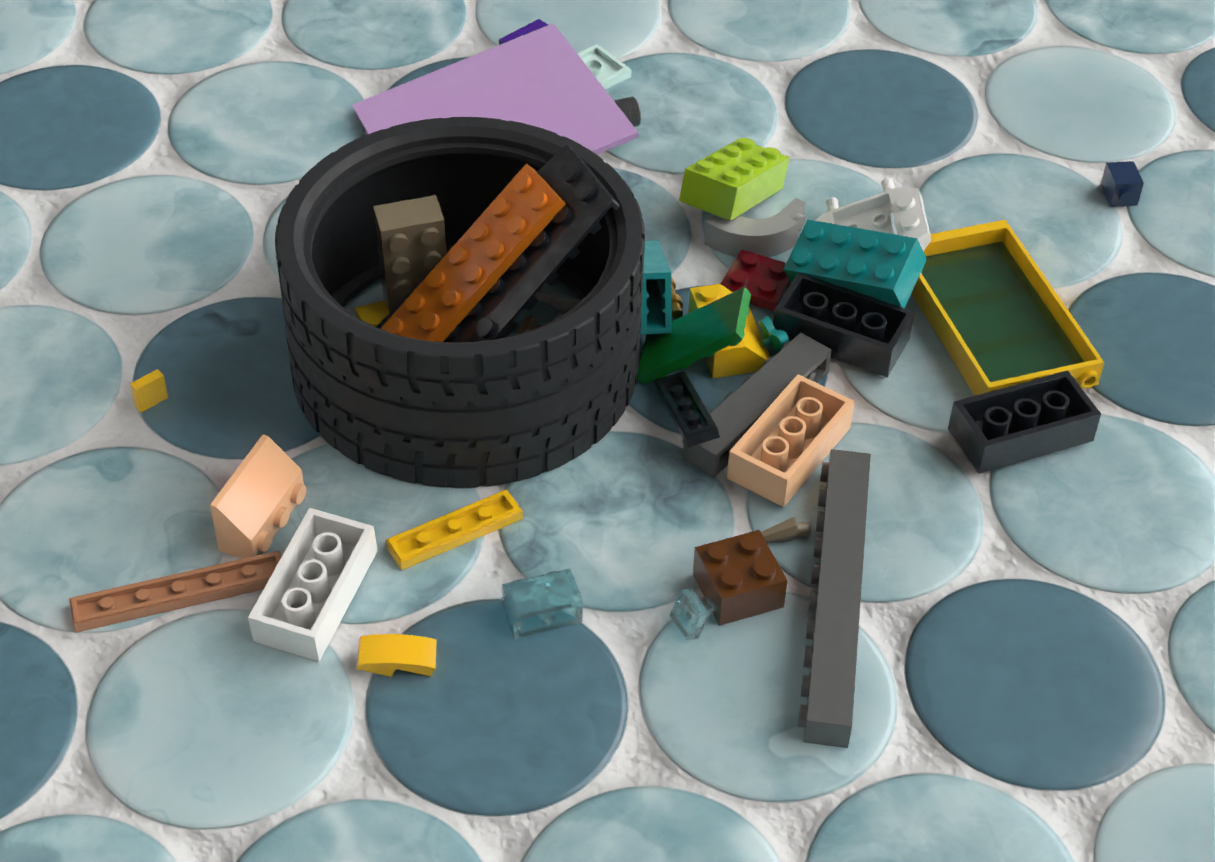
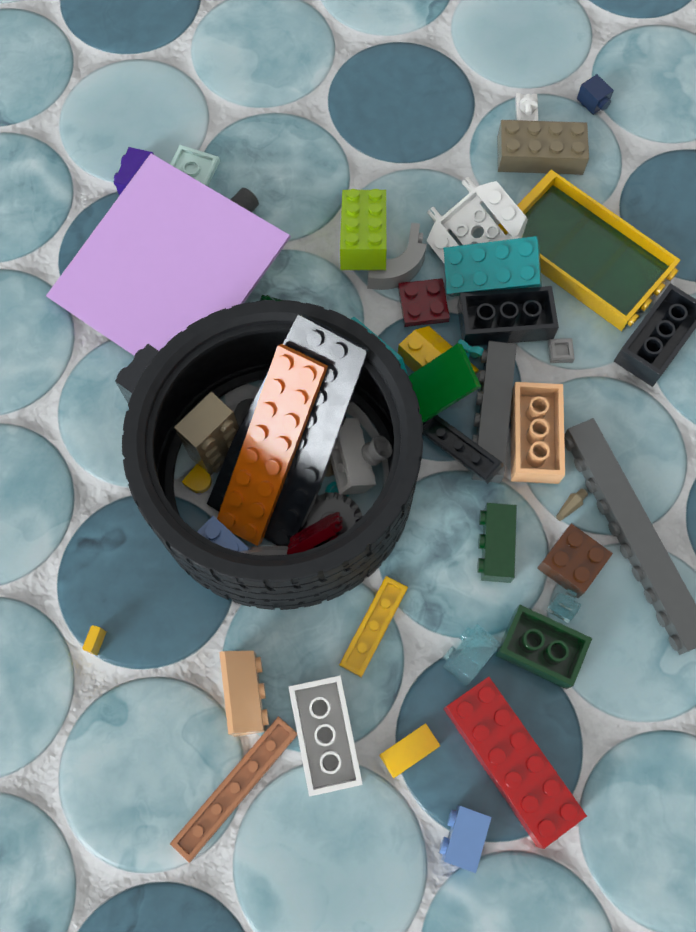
camera: 30 degrees left, 25 degrees up
(389, 763) = (465, 838): none -> medium blue brick
(506, 724) = (515, 763): none -> red brick
(632, 632) = (544, 647): none -> dark green brick
(661, 520) = (497, 542): none -> dark green brick
(889, 391) = (561, 350): none -> light grey tile
(1019, 165) = (526, 107): none -> white hips
(1029, 203) = (542, 147): none -> dark tan brick

